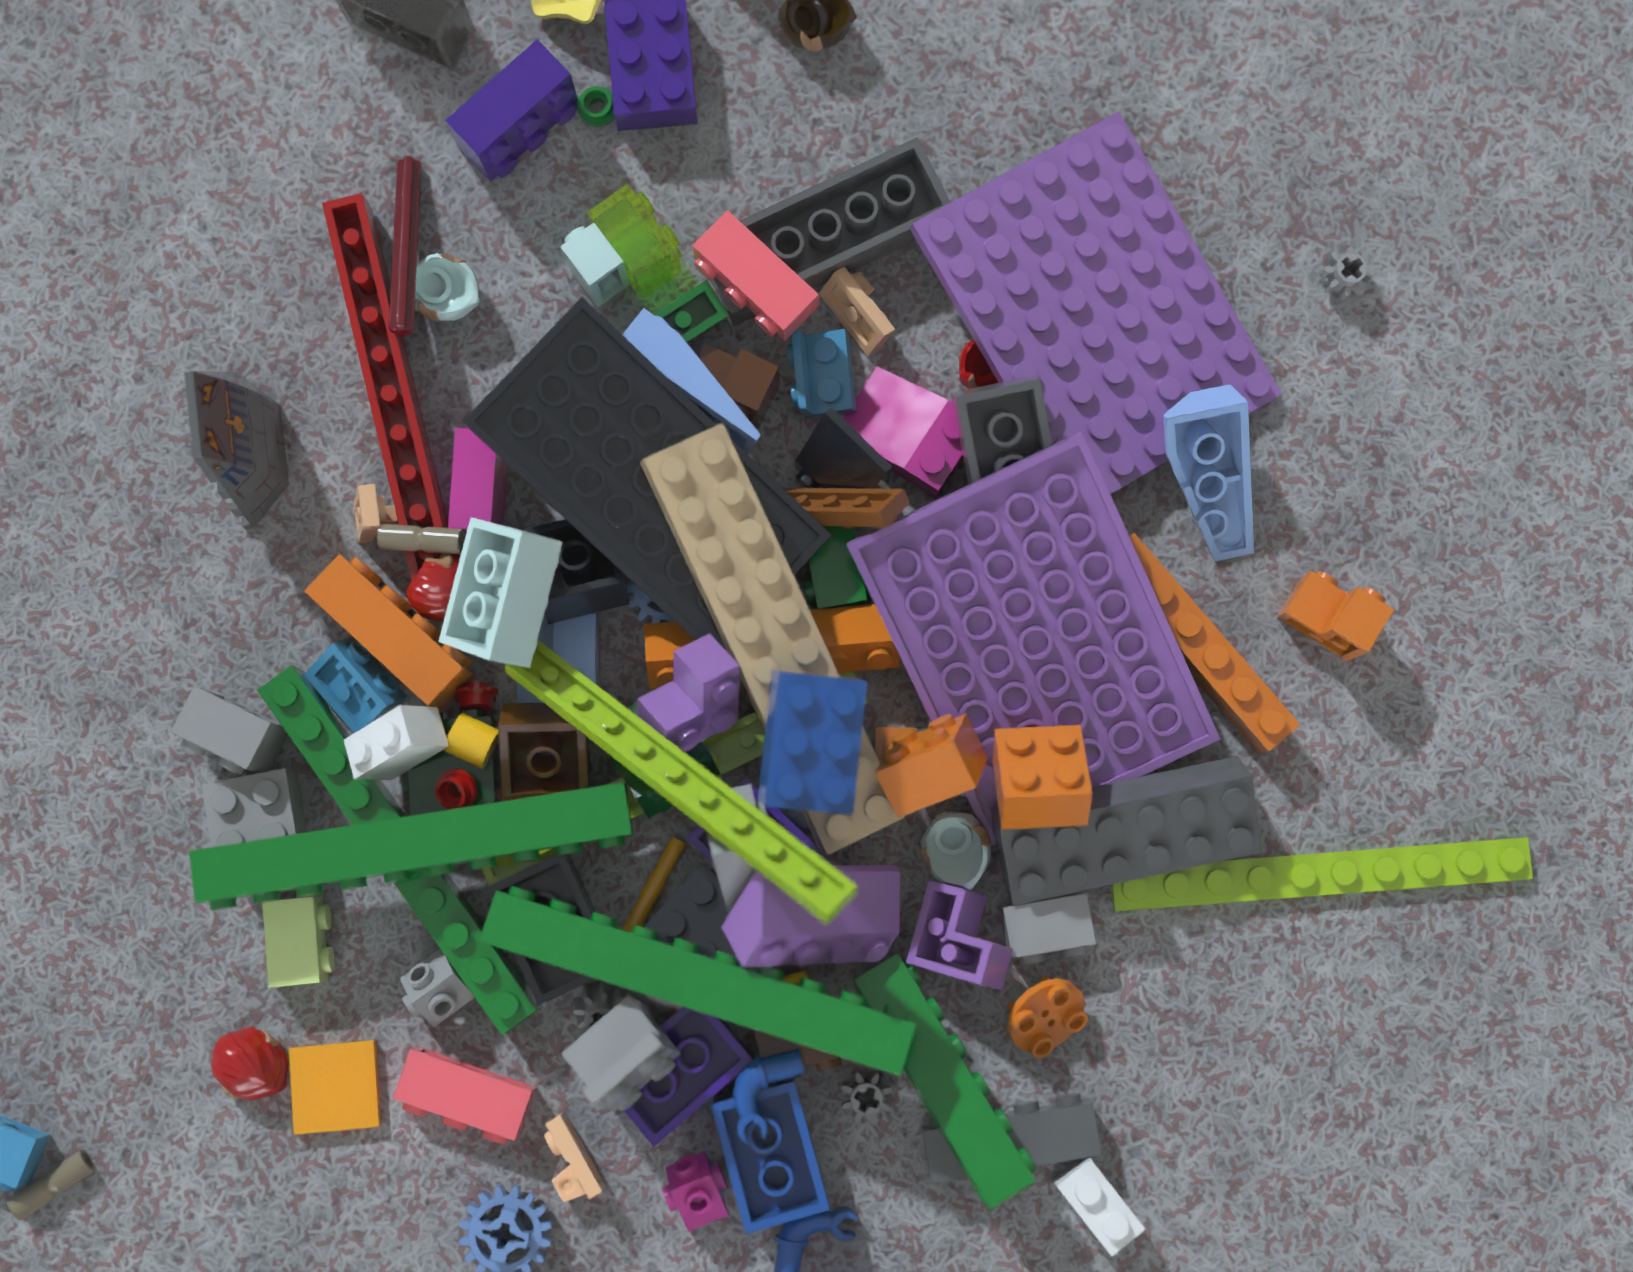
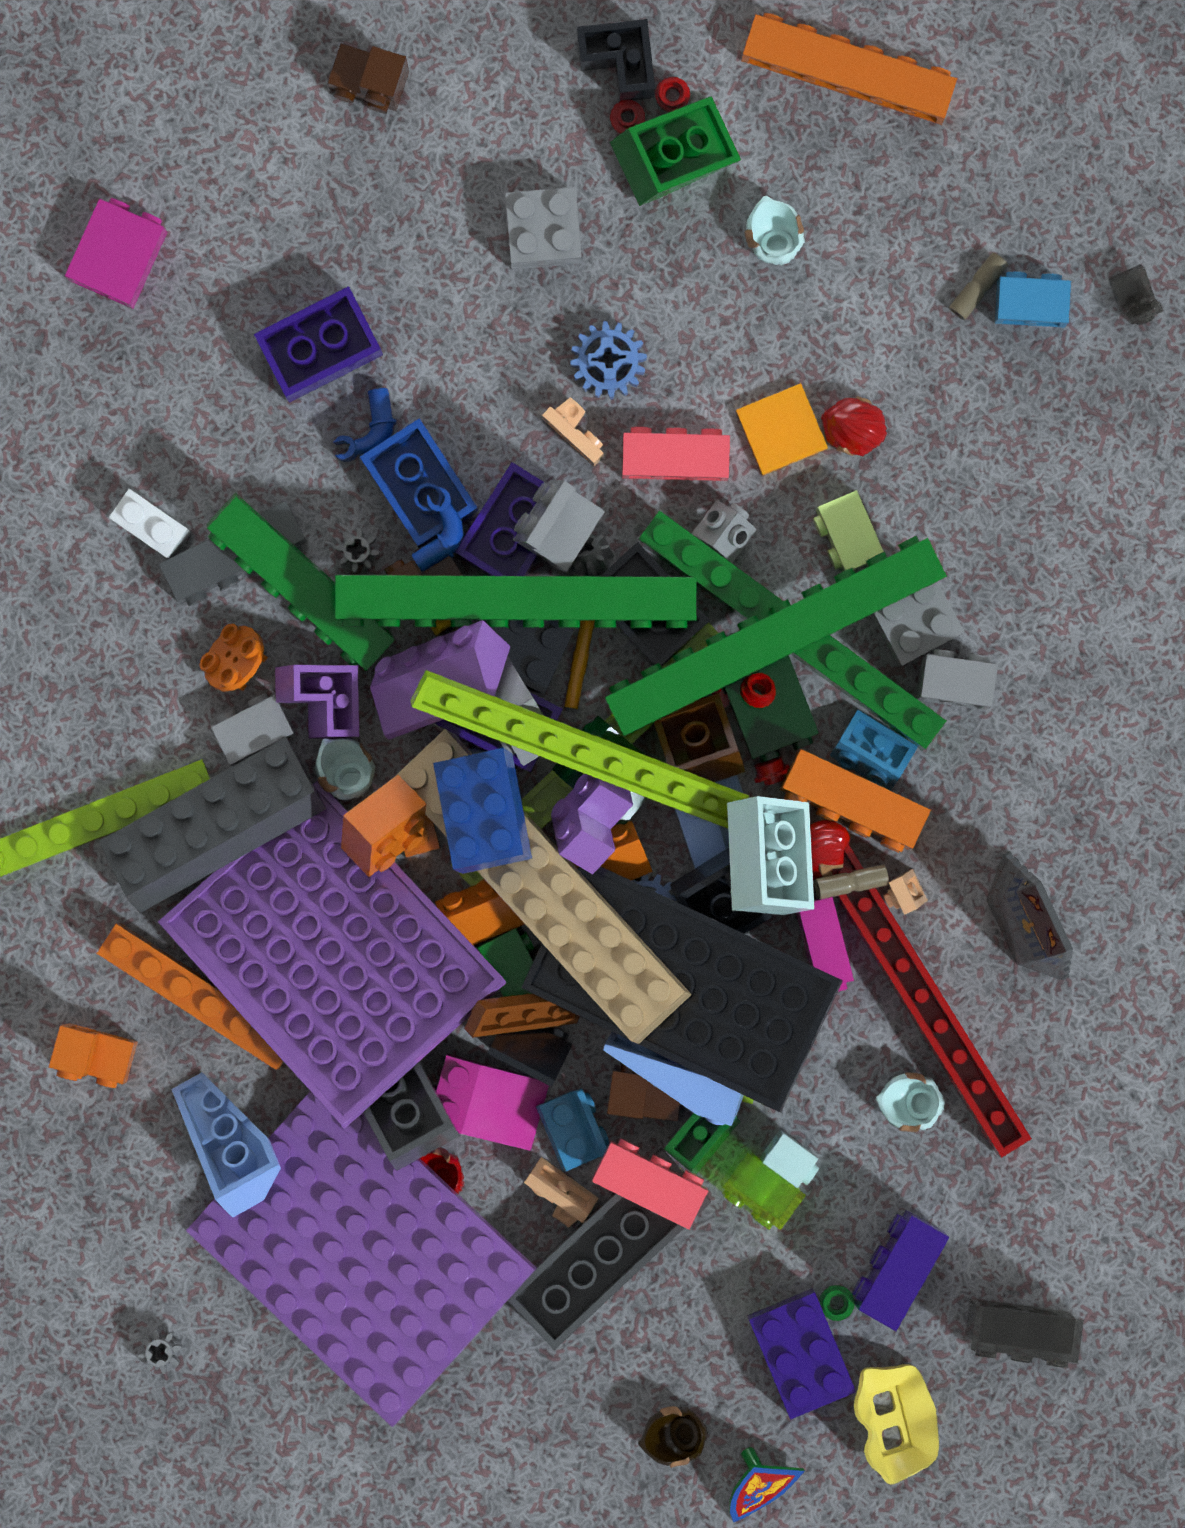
camera: 160 degrees right, 5 degrees up
(395, 742) = (817, 712): white brick -> none
(405, 247) = (953, 1126): dark red axle -> none
(472, 740) = (759, 733): yellow brick -> none
(696, 1190) = (469, 438): dark pink brick -> none
(1041, 777) = (293, 843): orange brick -> none

